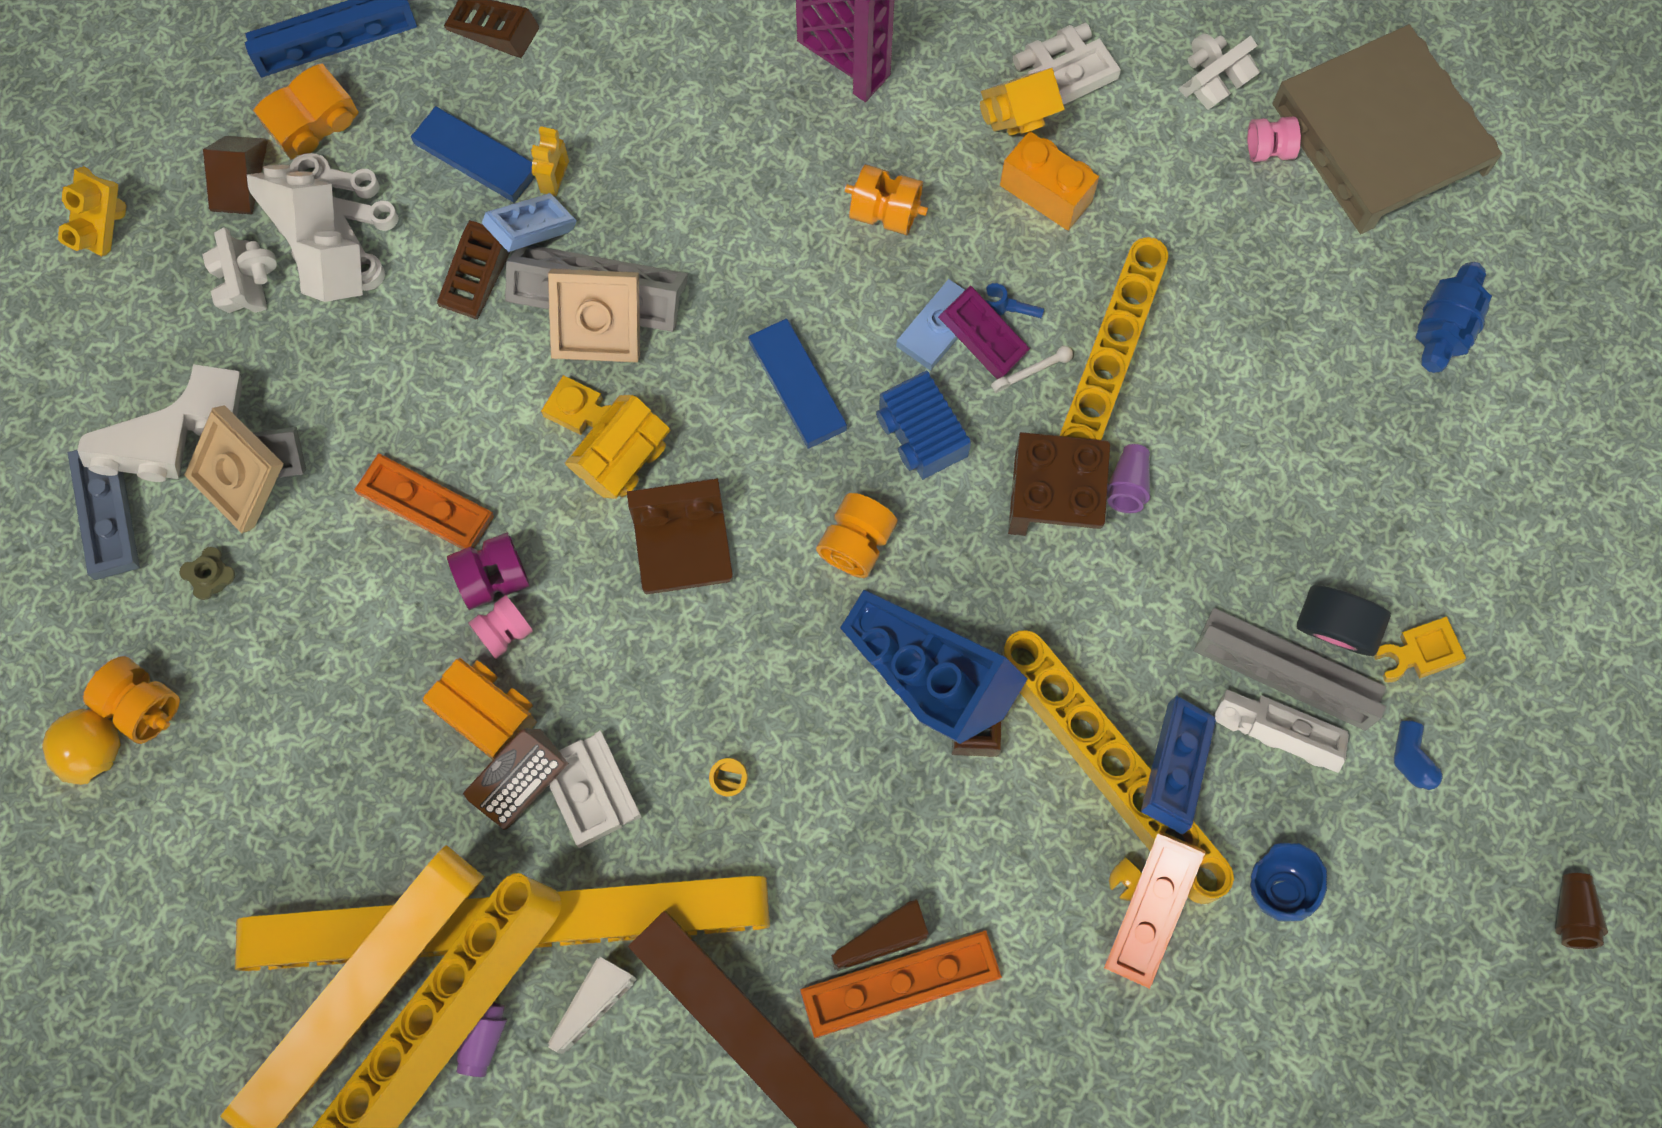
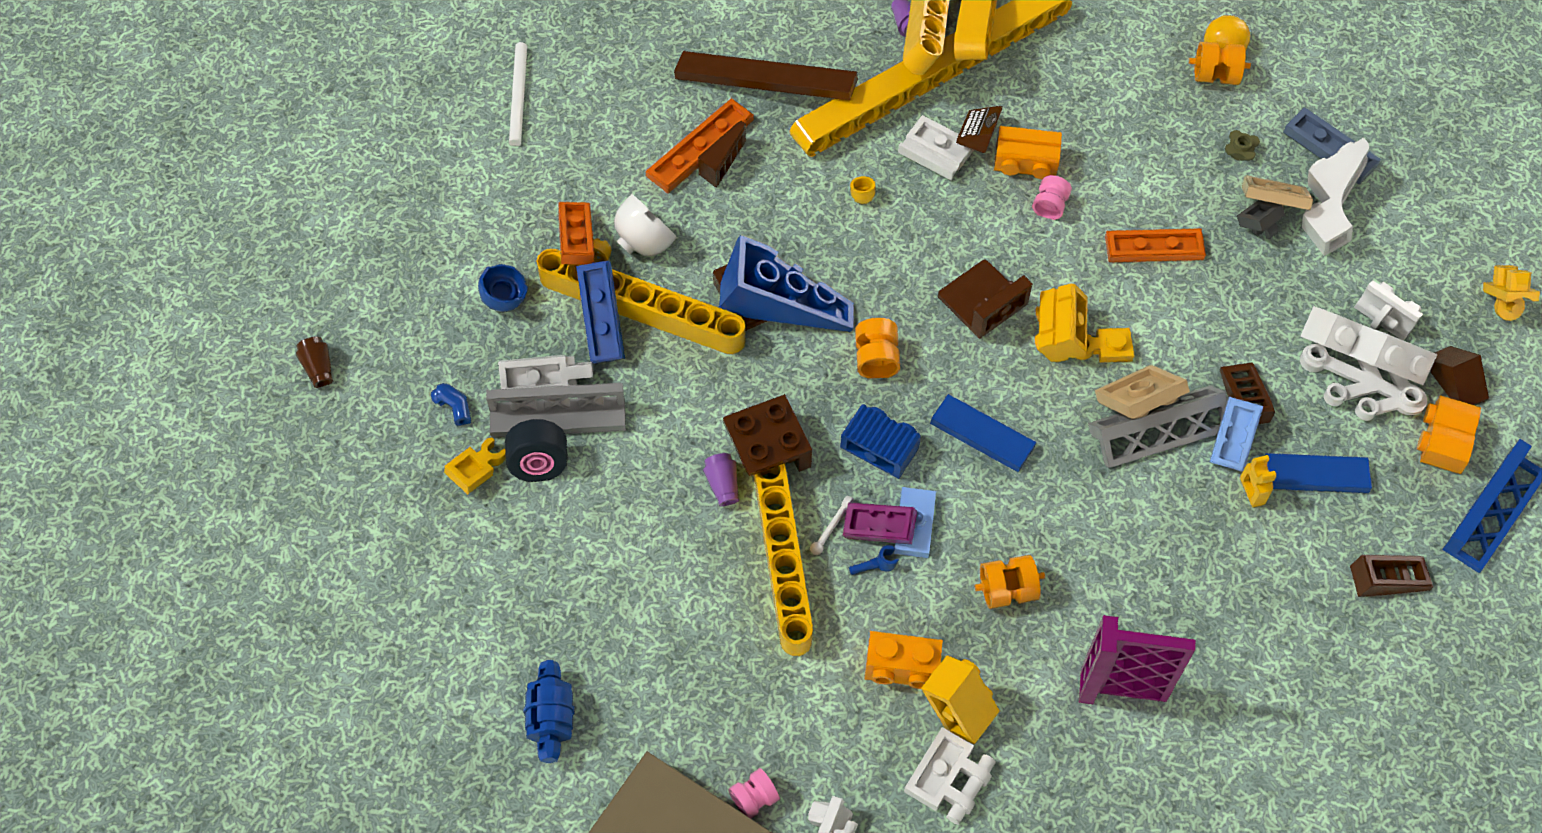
camera: 150 degrees right, 10 degrees down
(473, 579) = (1083, 218): magenta wheel -> none
(597, 994) = (860, 53): white slope -> none
(1059, 869) = (641, 229): none -> white cylinder

